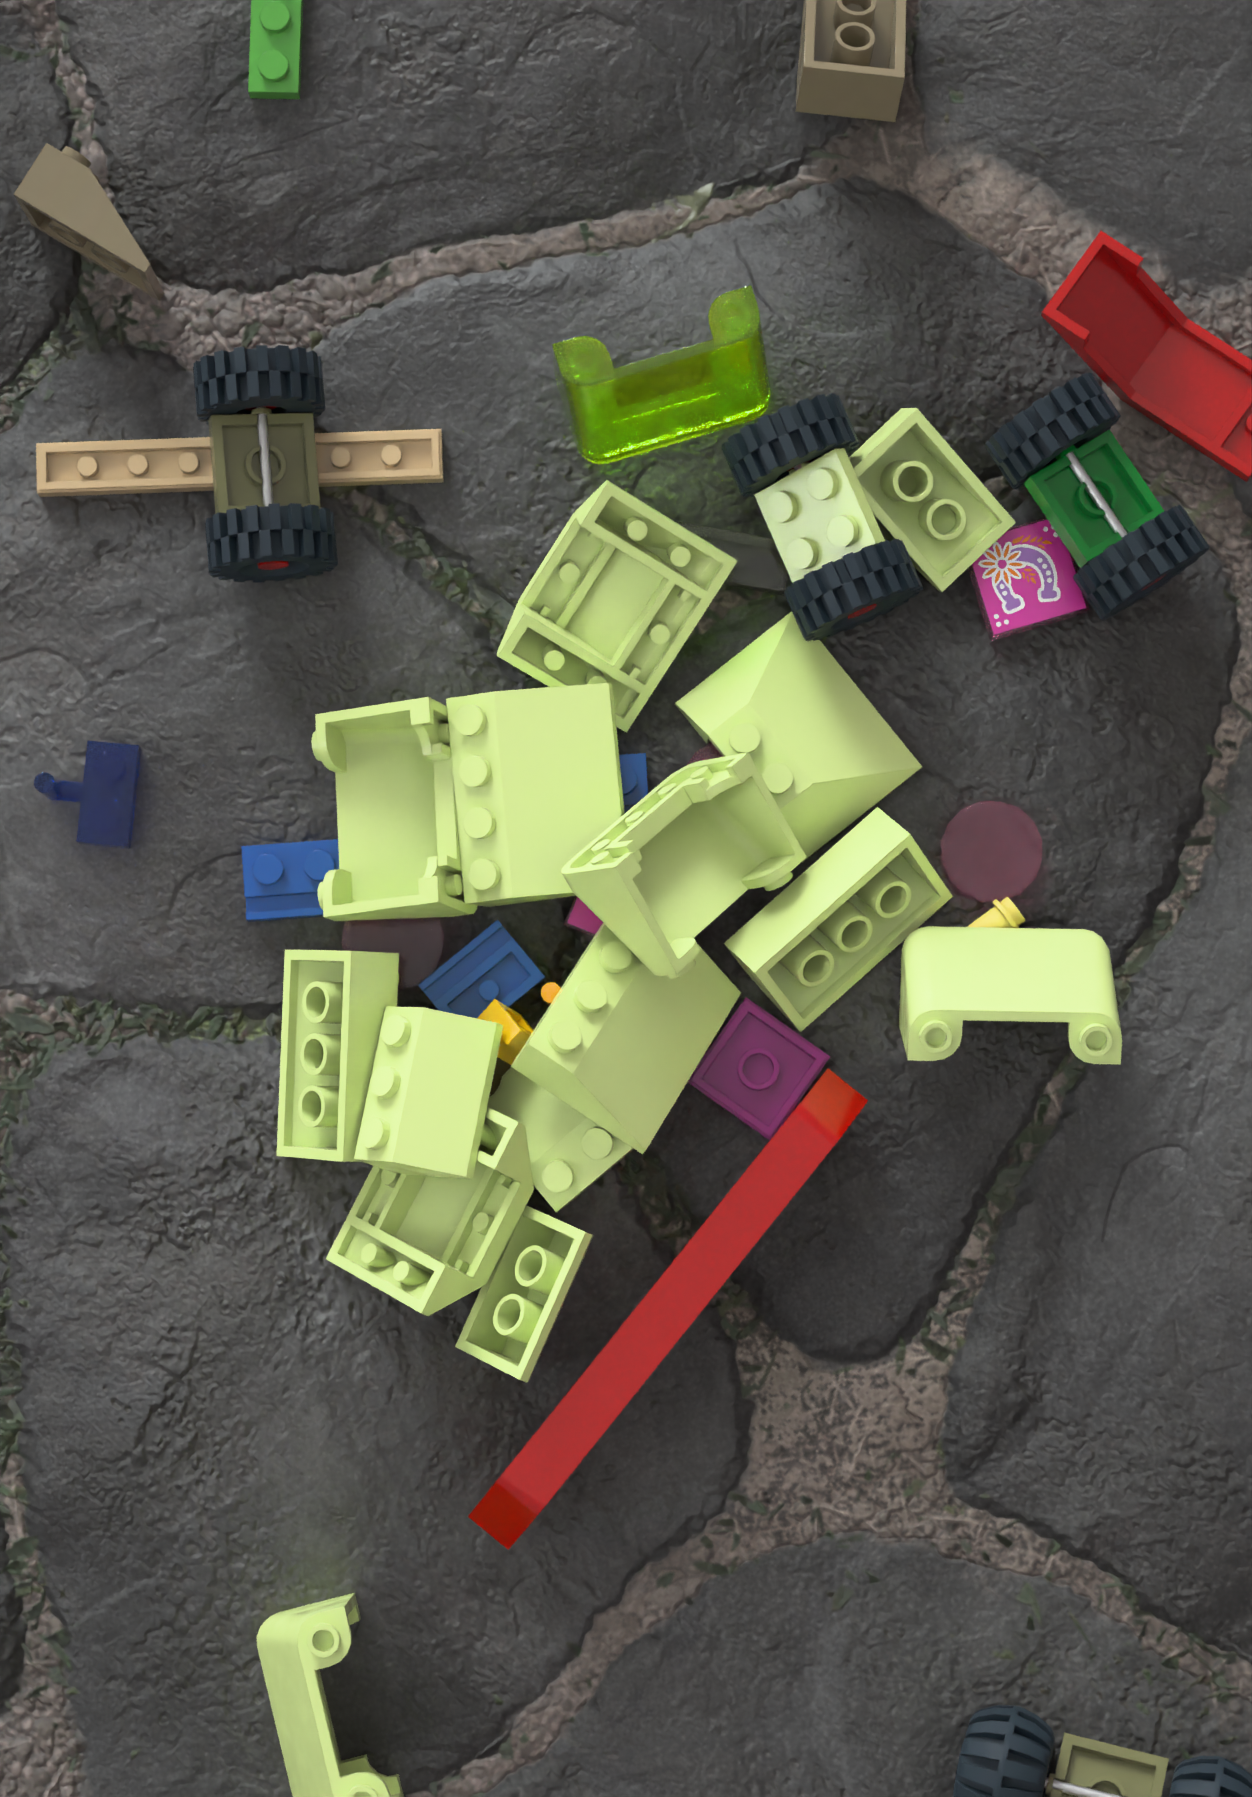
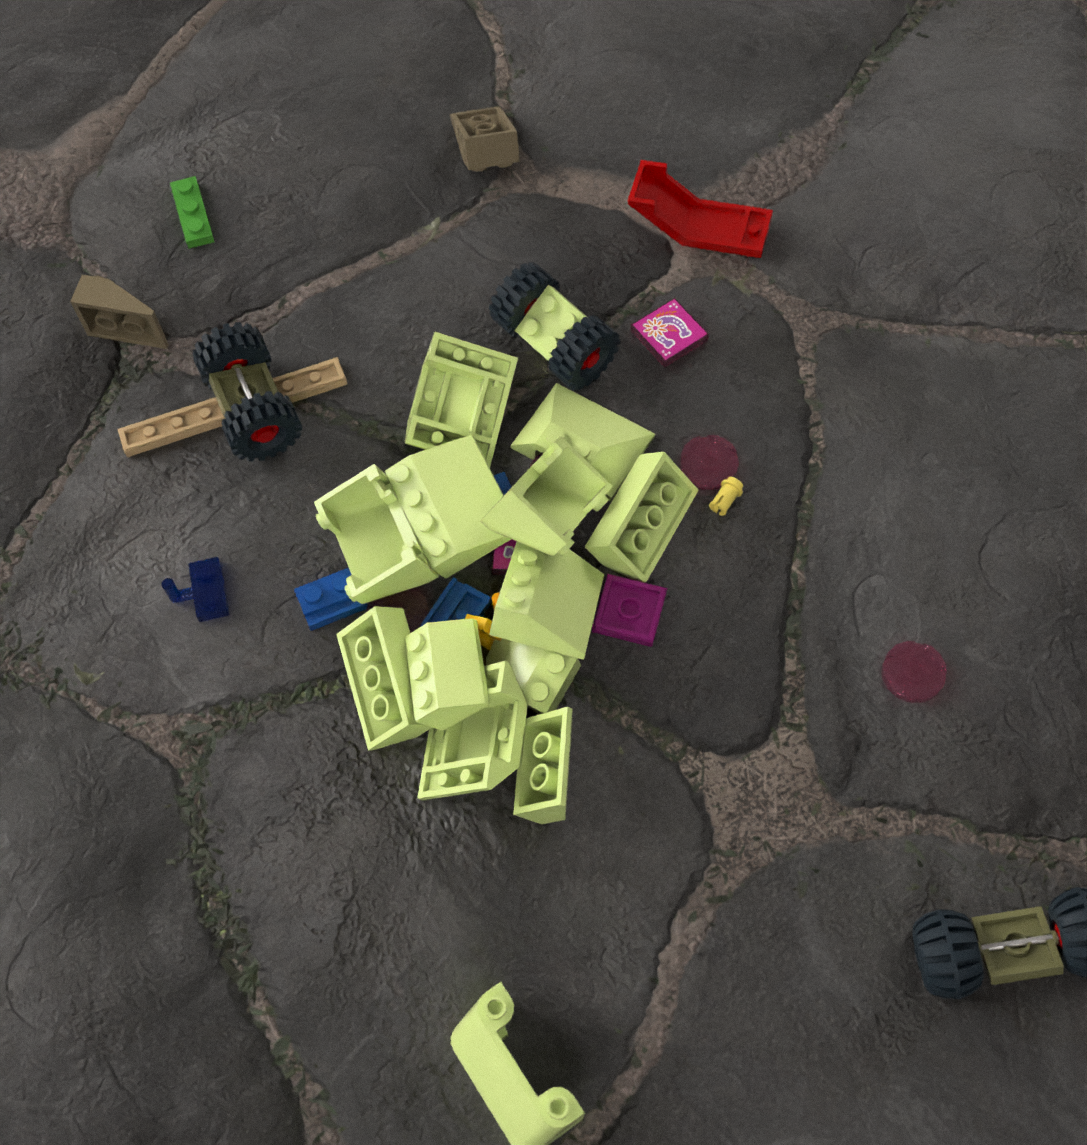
camera: 20 degrees left, 20 degrees down
(668, 395) = (448, 297): clear neon green windscreen -> none
(668, 1309) = (627, 760): red piece -> none
(927, 497) = (610, 301): yellowish green slope -> none
(1007, 977) = (713, 519): yellowish green windscreen -> none
(1095, 496) = (663, 262): plate -> none
(1159, 1331) = (914, 672): none -> clear pink tile

